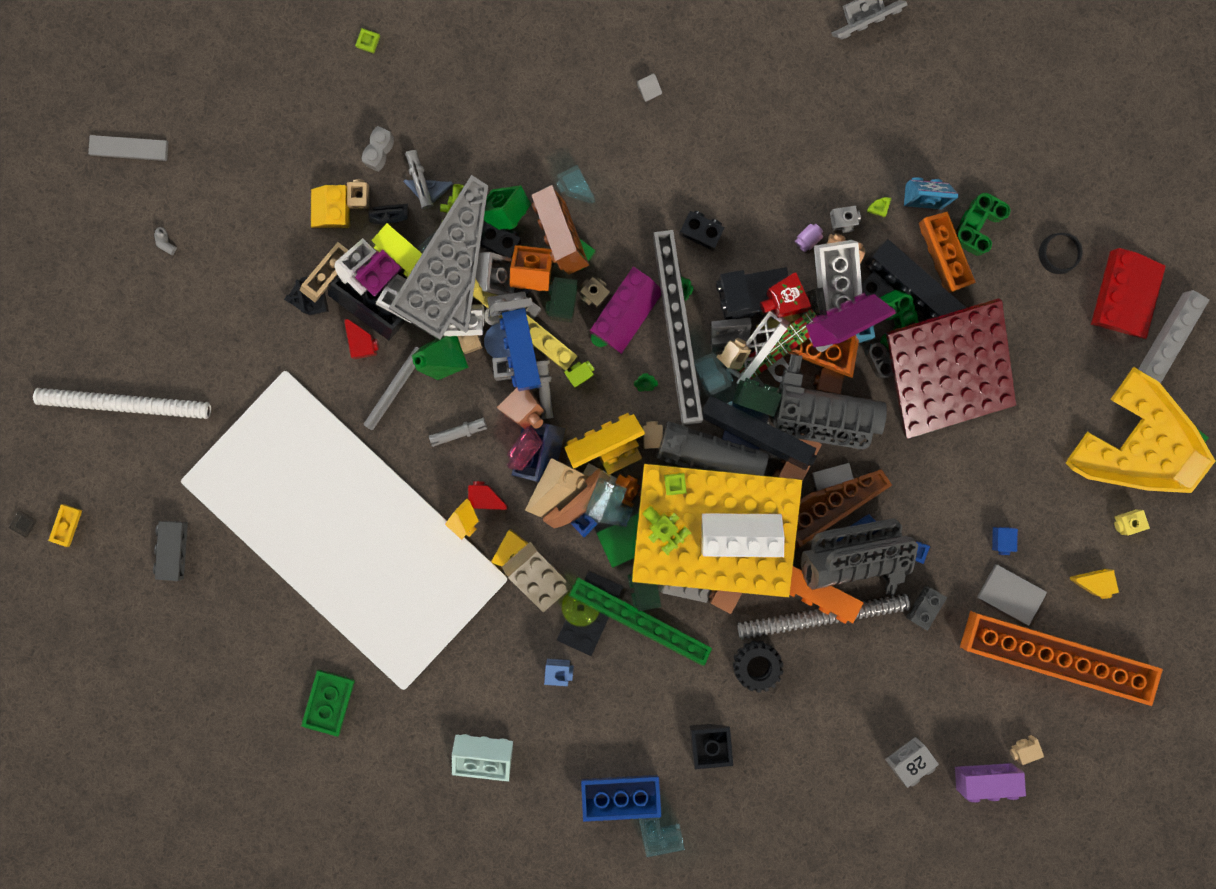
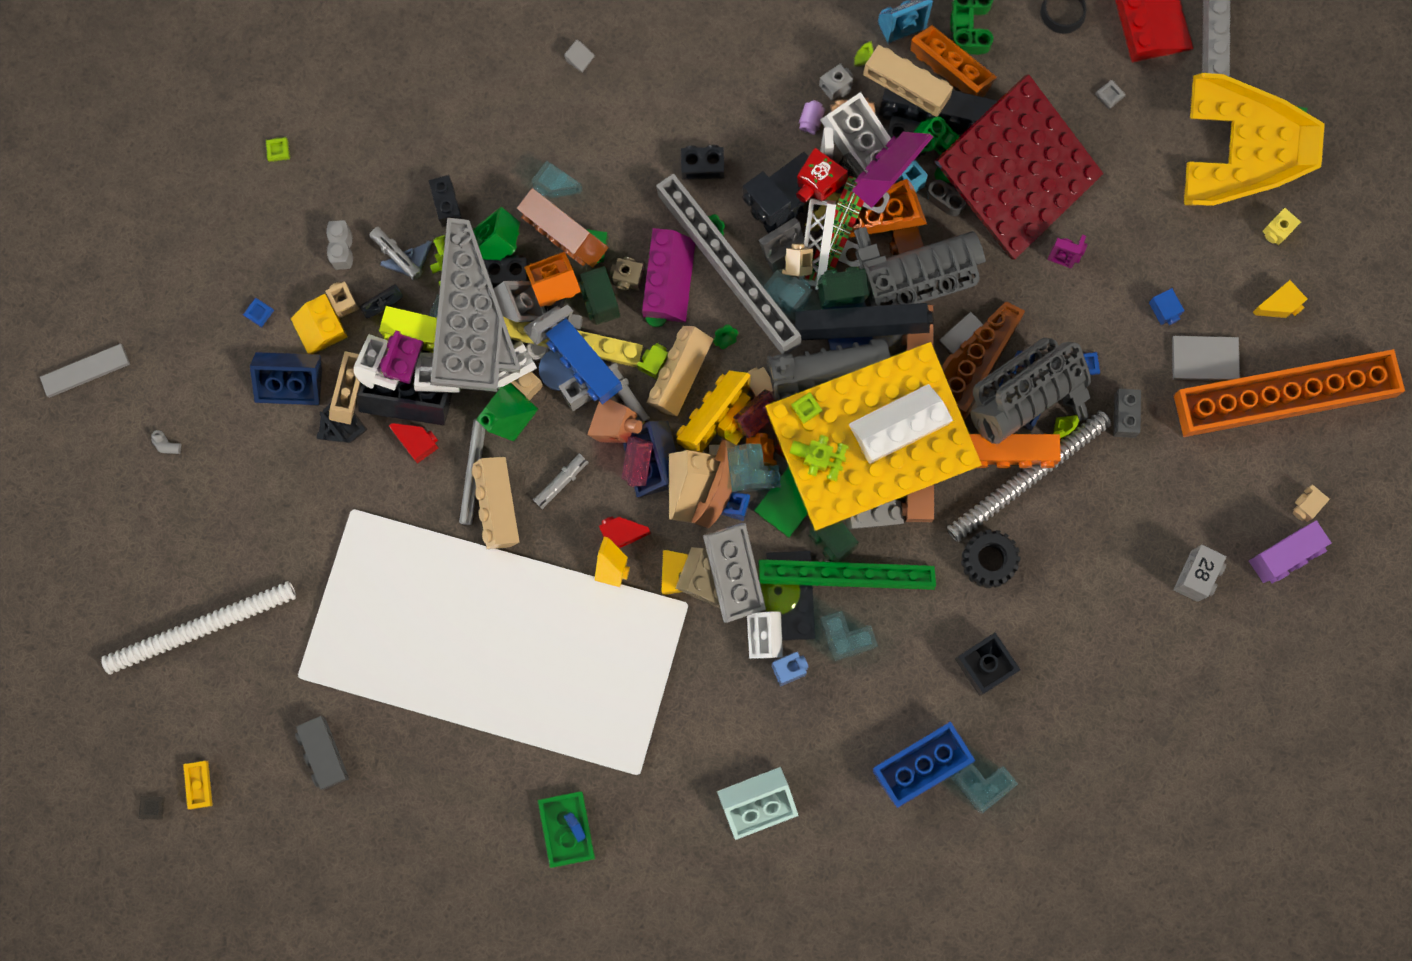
camera: 25 degrees left, 10 degrees down
(283, 237) = (286, 378): none -> dark blue slope
(288, 170) = (258, 312): none -> blue tile
(333, 707) = (575, 827): none -> blue tile
(398, 424) = (495, 503): none -> tan brick
(480, 155) = (444, 199): none -> black brick
(552, 580) = (734, 572): none -> light grey tile
(553, 637) = (765, 635): none -> white brick
(595, 393) = (679, 370): none -> tan brick
(613, 674) = (845, 643): none -> clear light blue brick
(634, 461) = (754, 414): none -> clear pink bracket
(807, 272) = (827, 145): none -> white tile
(872, 592) = (1065, 425): none -> lime tile
(901, 252) = (908, 80): none -> tan brick
(952, 457) = (1066, 252): none -> magenta bracket
(1058, 342) = (1110, 94): none -> light grey tile

